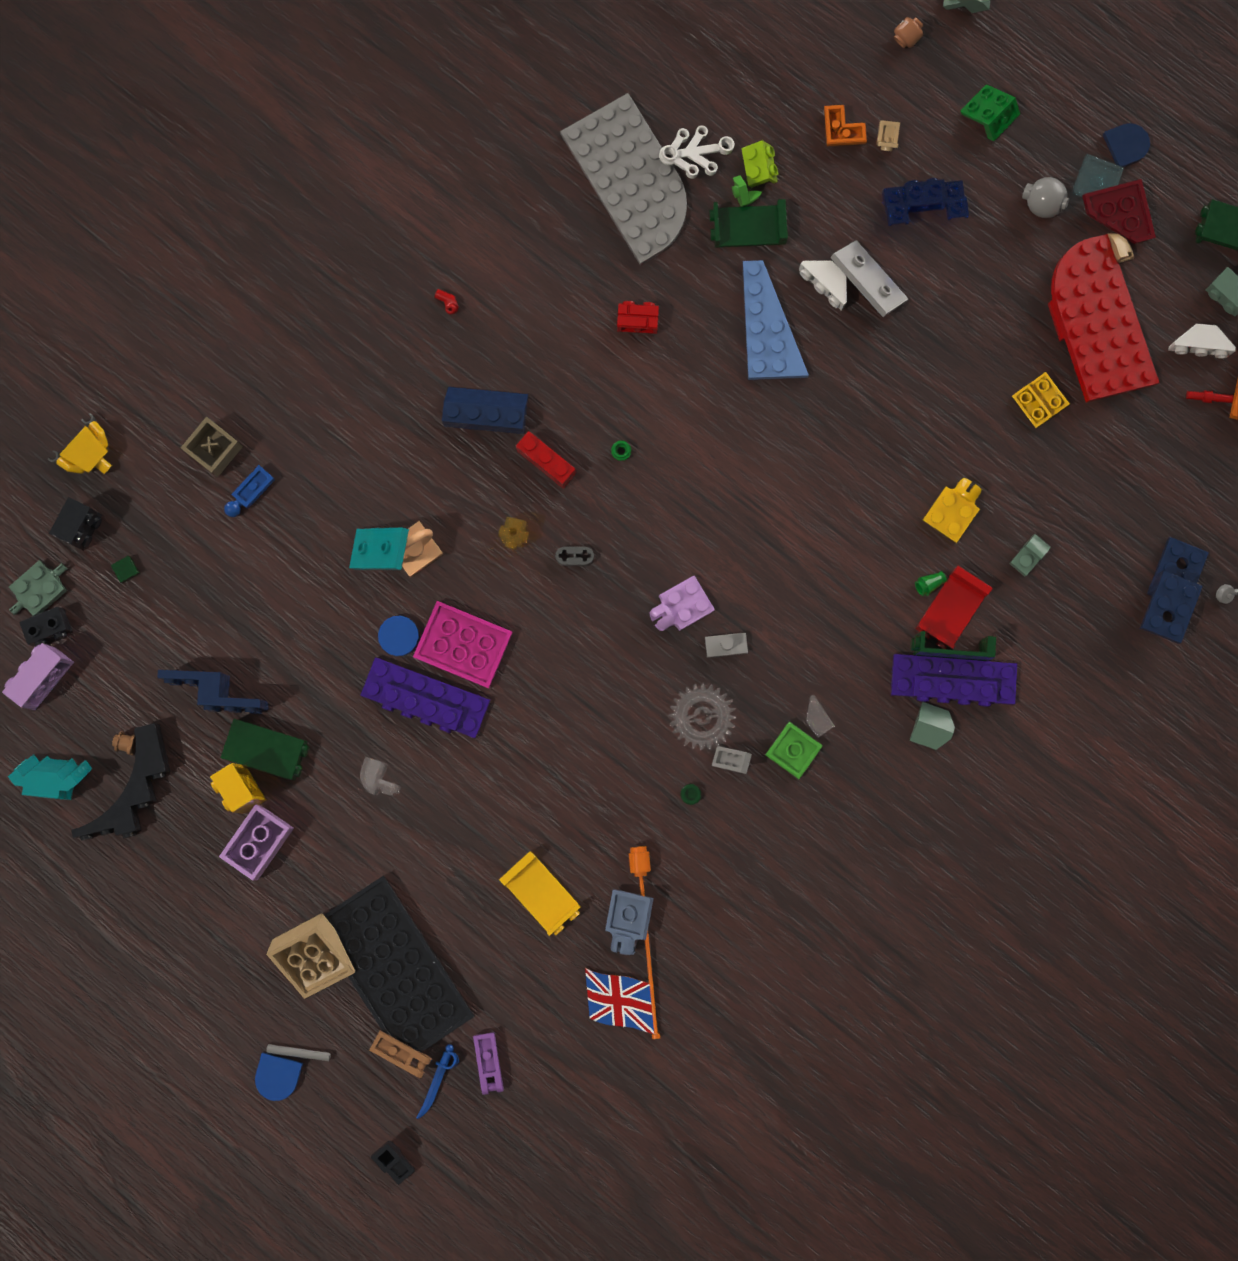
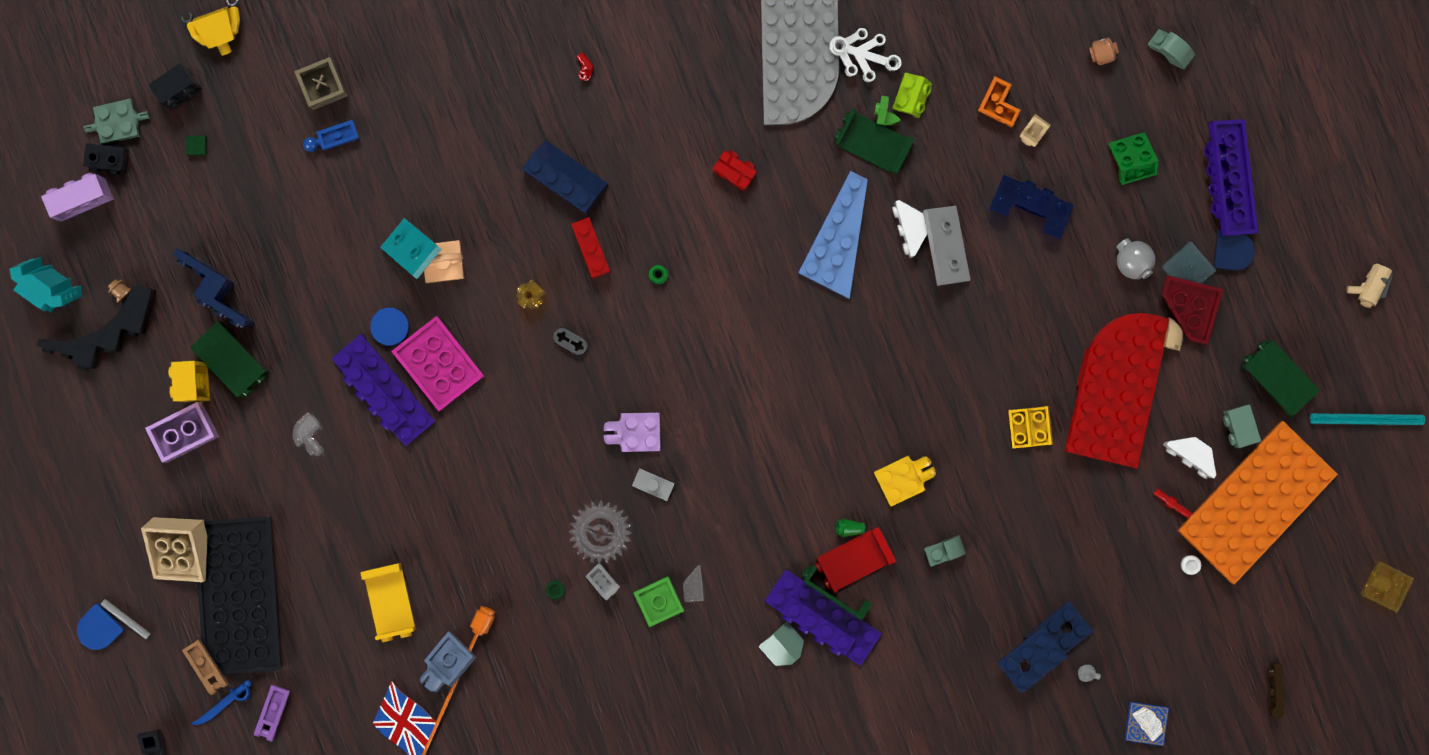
camera: 25 degrees right, 5 degrees up
(1088, 80) = (1231, 177): none -> dark purple plate

